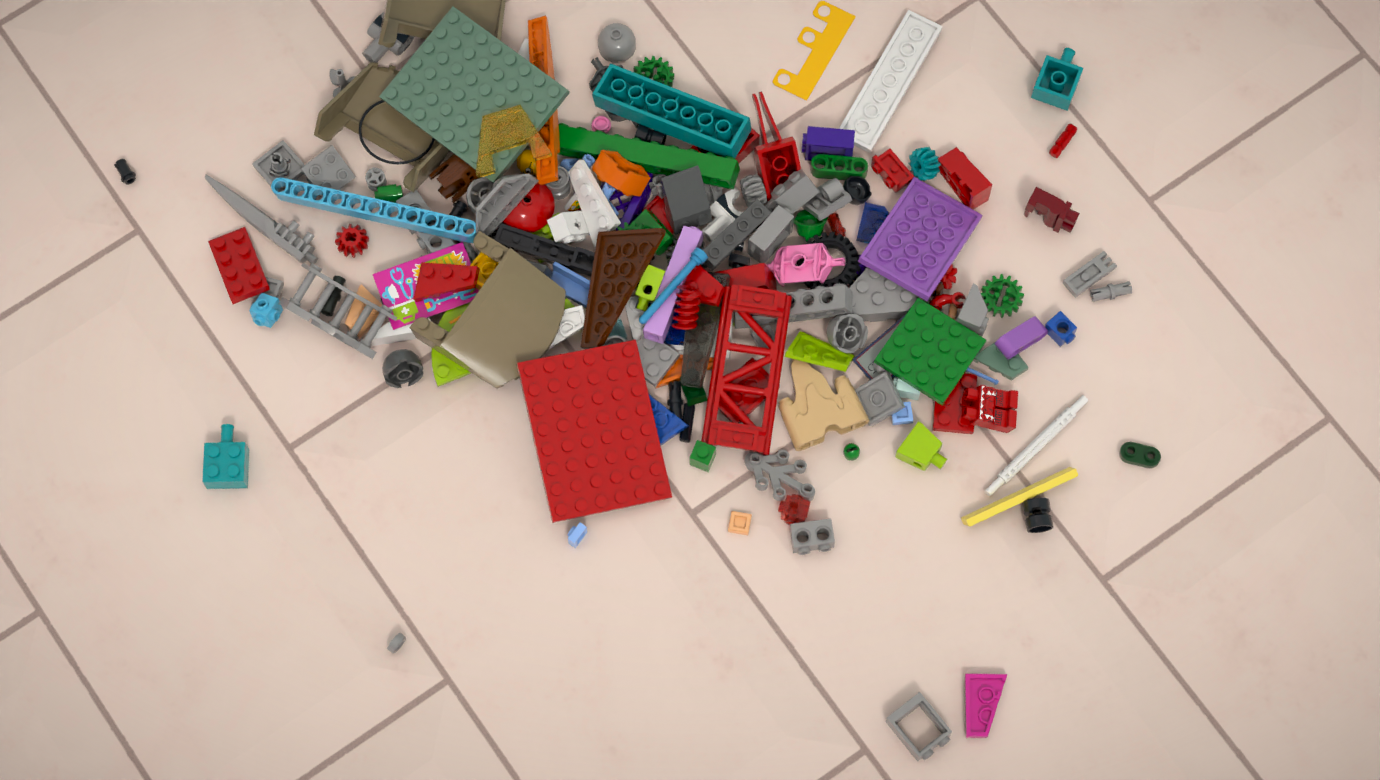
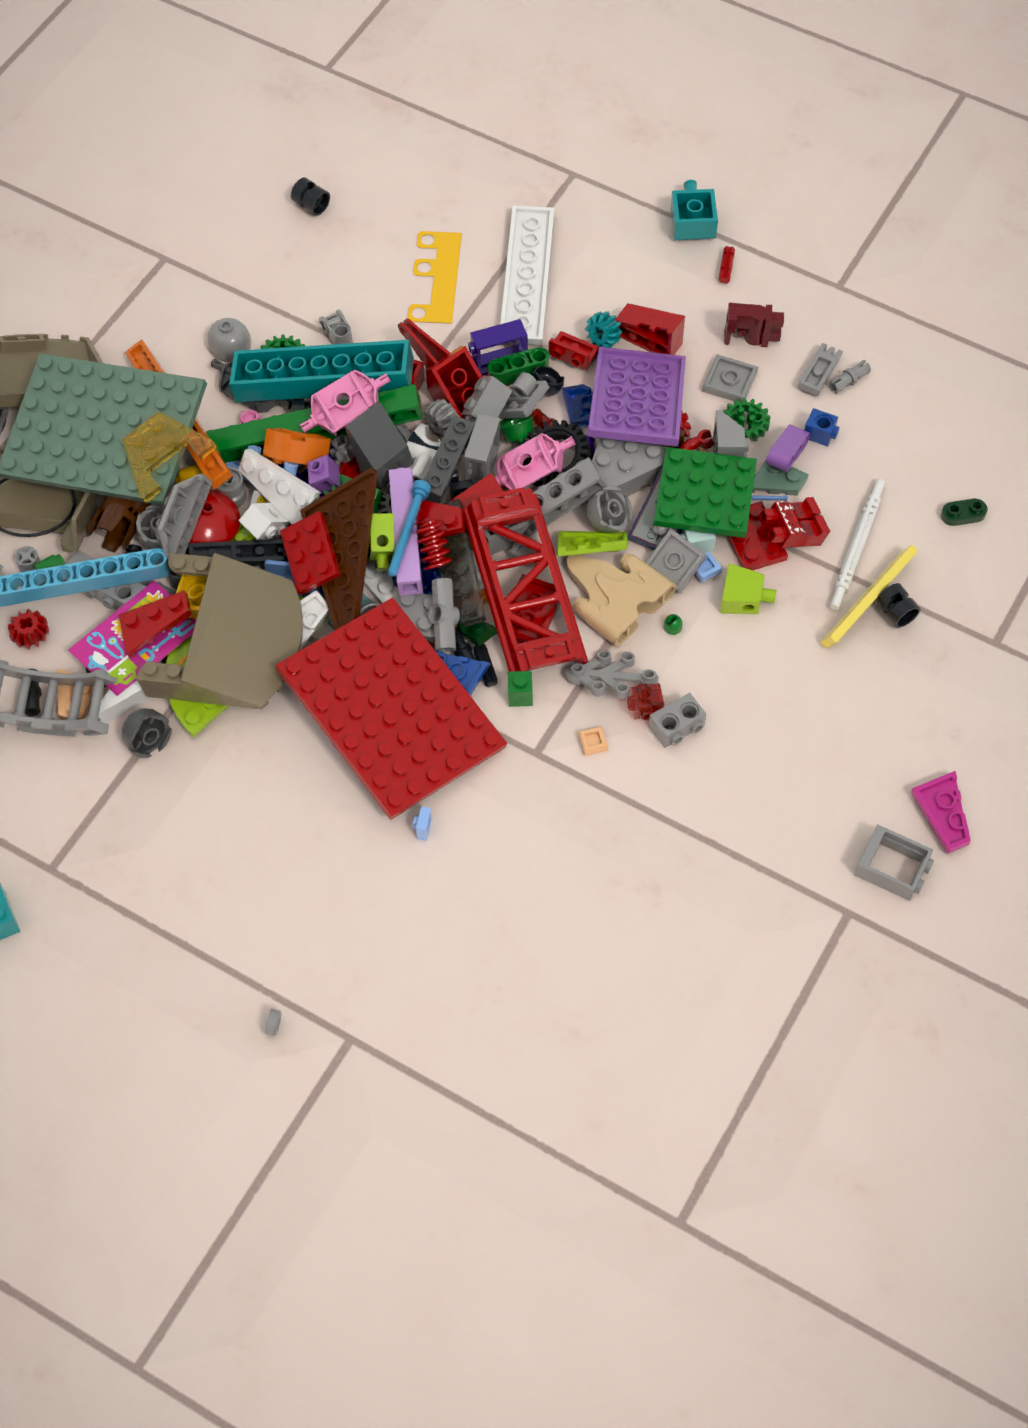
camera: 25 degrees left, 10 degrees down
(589, 273) = (310, 553): none -> red plate
(631, 206) = (323, 474): none -> medium lavender brick
(669, 370) = (443, 615): none -> light grey piece
(689, 152) = (331, 415): none -> bright pink plate
(708, 68) = (336, 328): none -> light grey piece
(1010, 250) = (730, 378): none -> light grey tile

